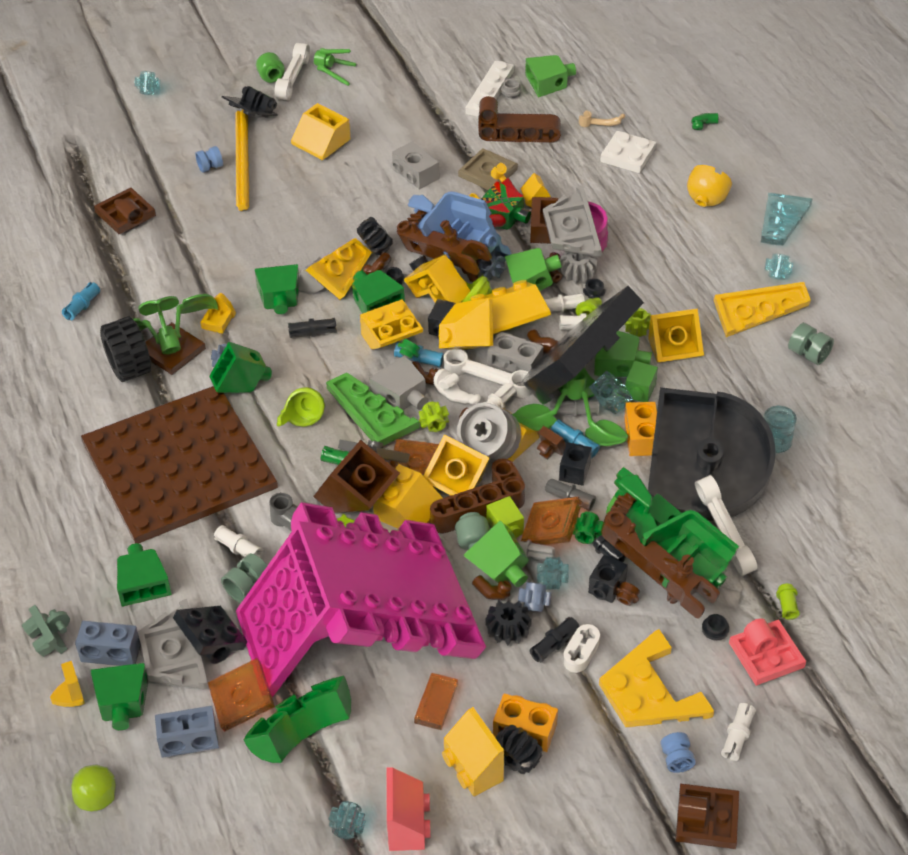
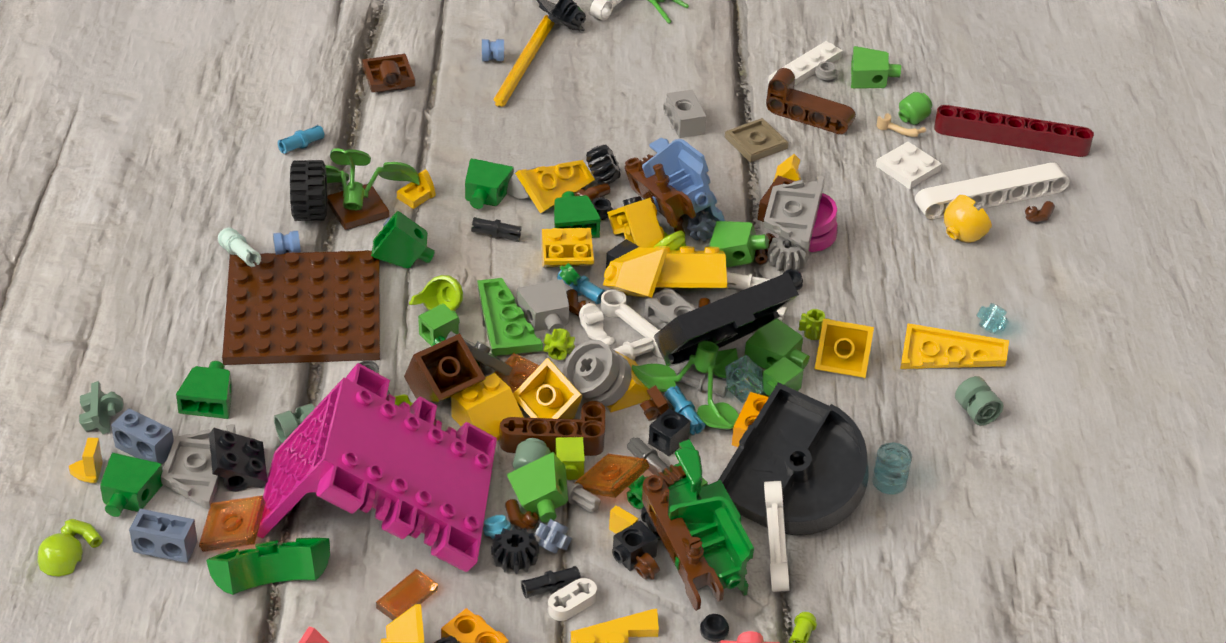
camera: 20 degrees right, 5 degrees down
(85, 424) = (237, 245): none -> light aqua pin
(102, 753) = (84, 529): none -> lime arm
(130, 406) = (286, 243): none -> medium blue wheel
(237, 542) = (309, 392): white pin -> none
(315, 435) = (438, 323): none -> bright green brick
(321, 131) = (612, 56): yellow slope -> none
(479, 605) = (495, 524): none -> medium azure plate
(504, 201) = (744, 175): torso -> none
(552, 572) = (585, 521): clear light blue gear -> none
(585, 561) = (620, 519): none -> yellow tile
(606, 98) = (915, 108): none -> bright green head
(696, 93) = (1013, 130): none -> dark red beam
(704, 118) = (999, 157): green arm -> none
(710, 152) = (995, 189): none -> white beam
(758, 161) = (1035, 215): none -> reddish brown arm
(782, 217) = (1028, 273): clear light blue wing -> none

